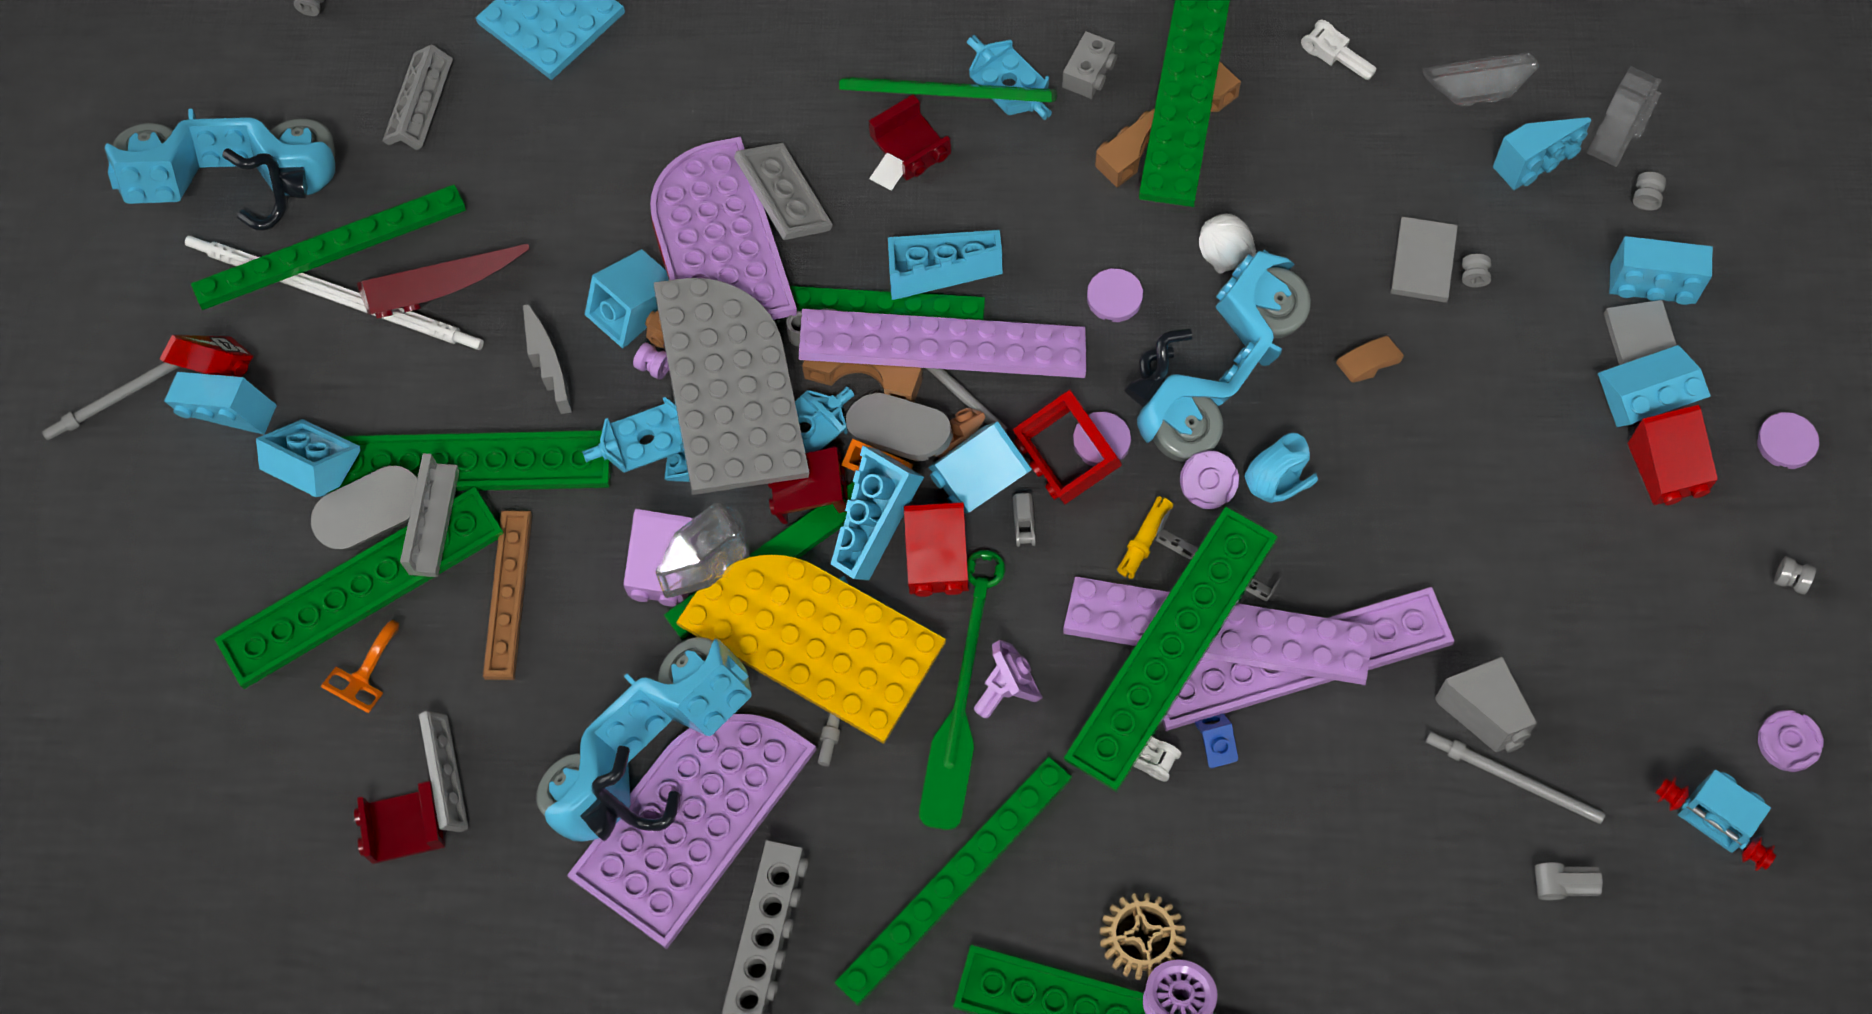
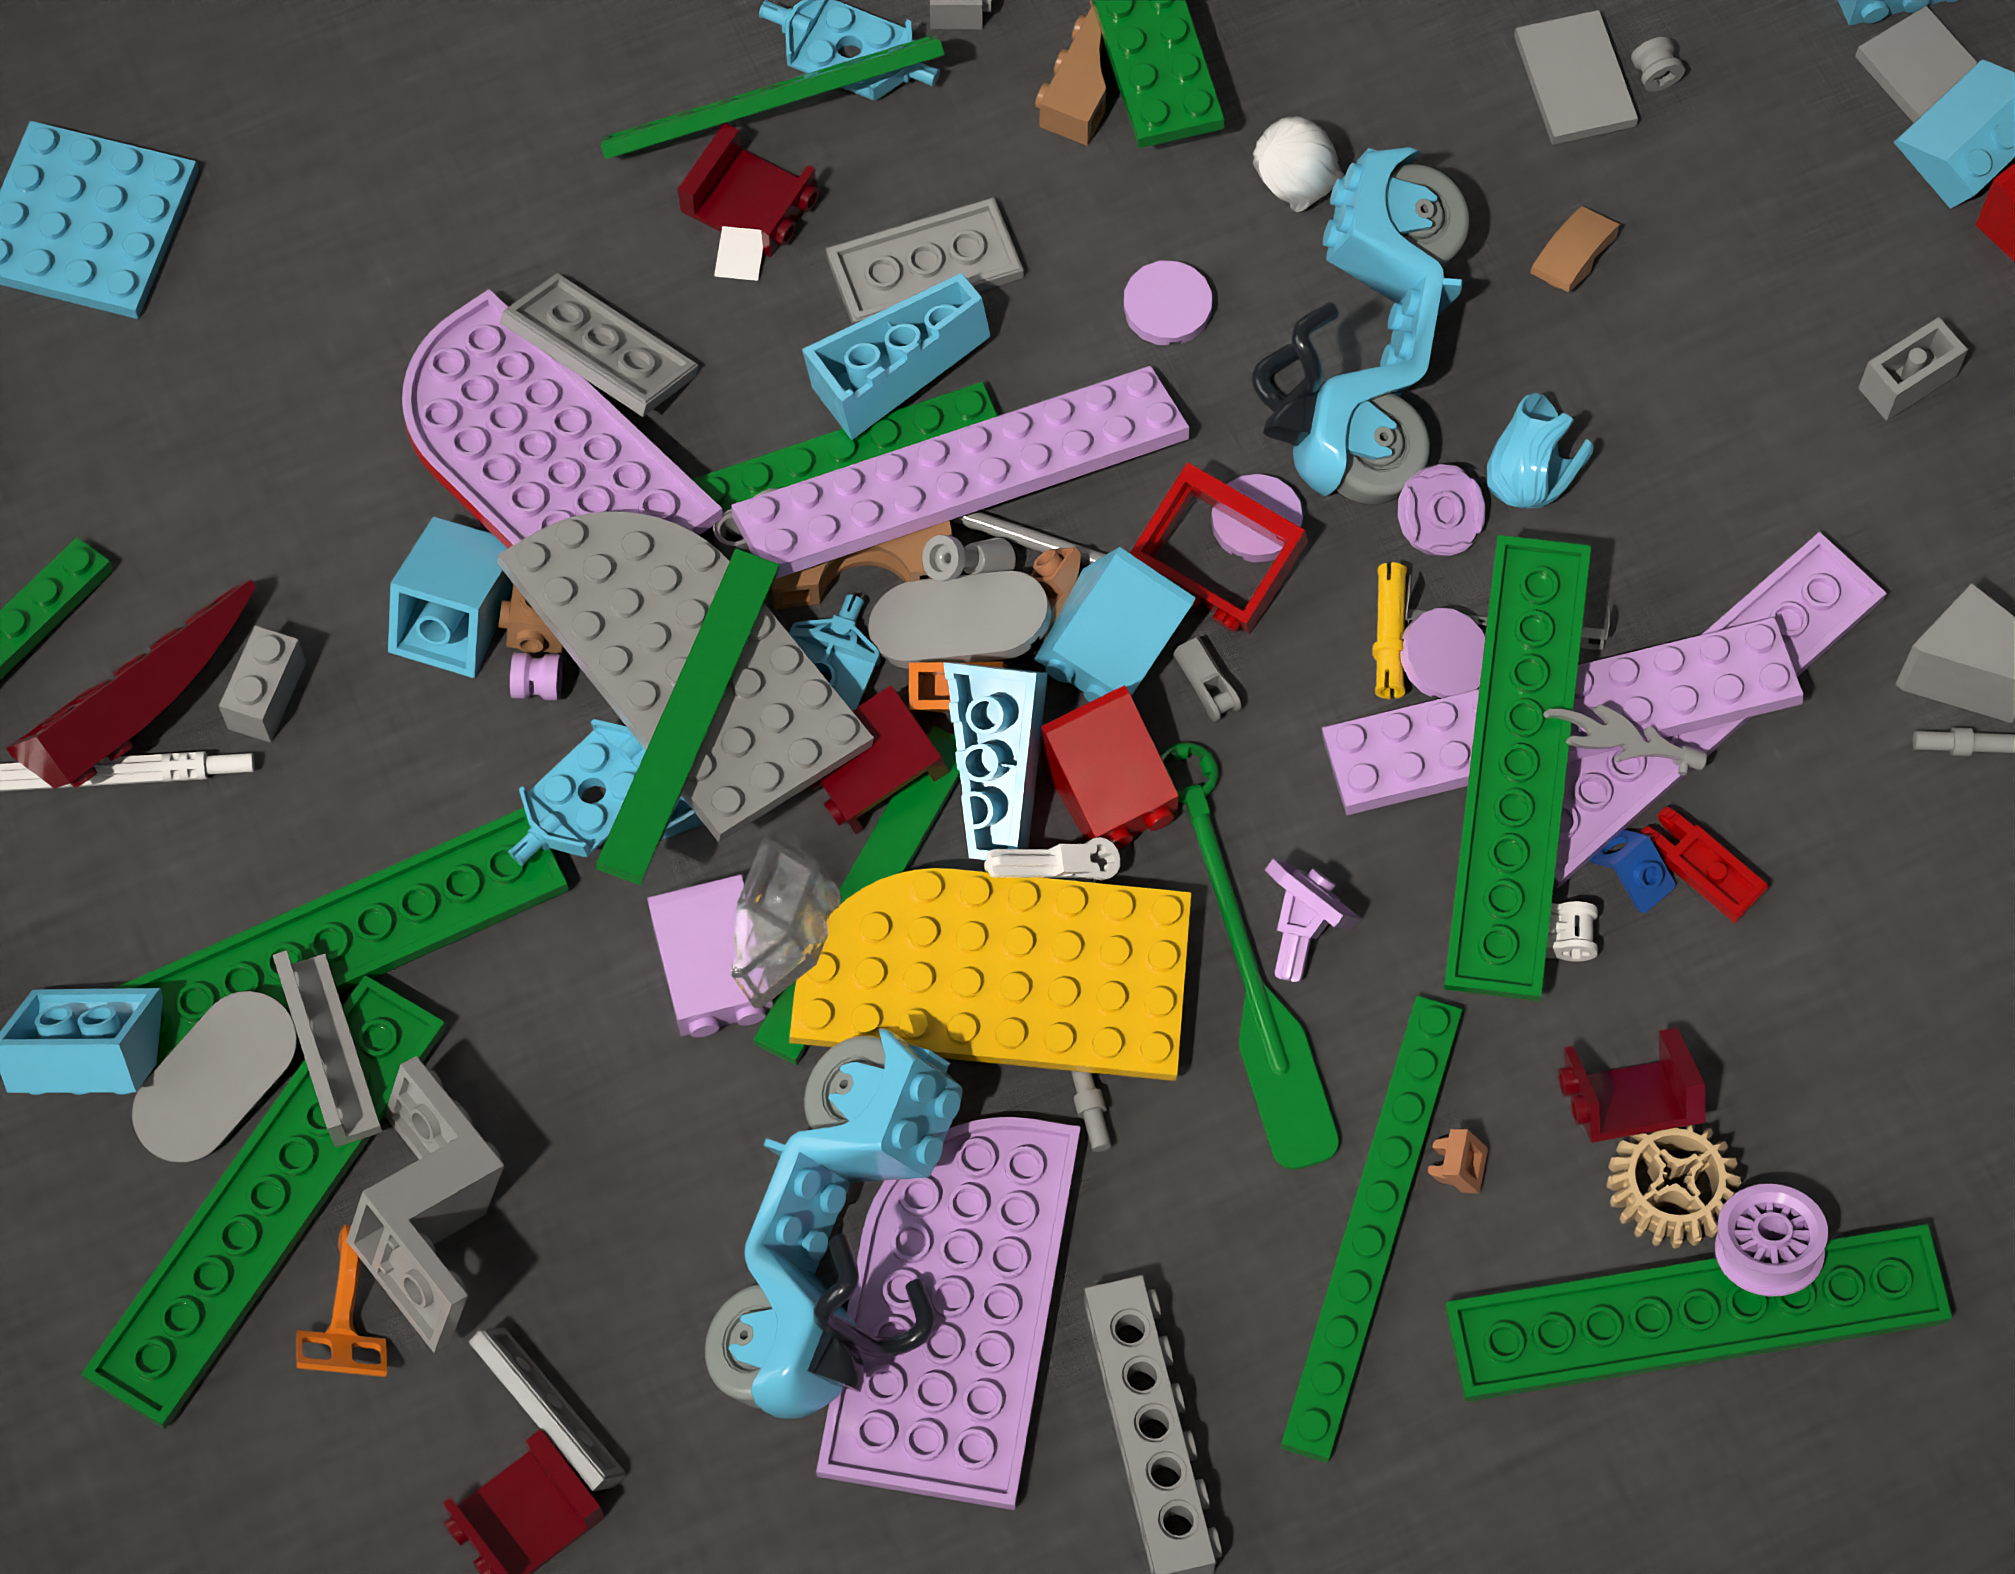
camera: 30 degrees left, 0 degrees up
(433, 626) = (425, 1203): none -> light grey bracket
(504, 303) = (262, 684): none -> light grey brick
(507, 596) = (500, 1113): medium nougat tile -> none
(543, 355) = (363, 733): light grey slope -> none
(706, 416) = (687, 718): none -> green tile
(879, 589) = (1073, 862): none -> white connector
(903, 387) = (946, 557): none -> light grey piece
(1014, 214) = (917, 255): none -> light grey tile
(1024, 866) = (1462, 1162): none -> nougat tile
(1143, 874) = (1636, 1097): none -> dark red panel
(1165, 561) = (1443, 653): none -> lavender tile
(1242, 654) = (1622, 733): none -> light grey piece
(1261, 757) = (1707, 866): none -> red hinge
(1539, 513) = (1912, 368): none -> light grey brick

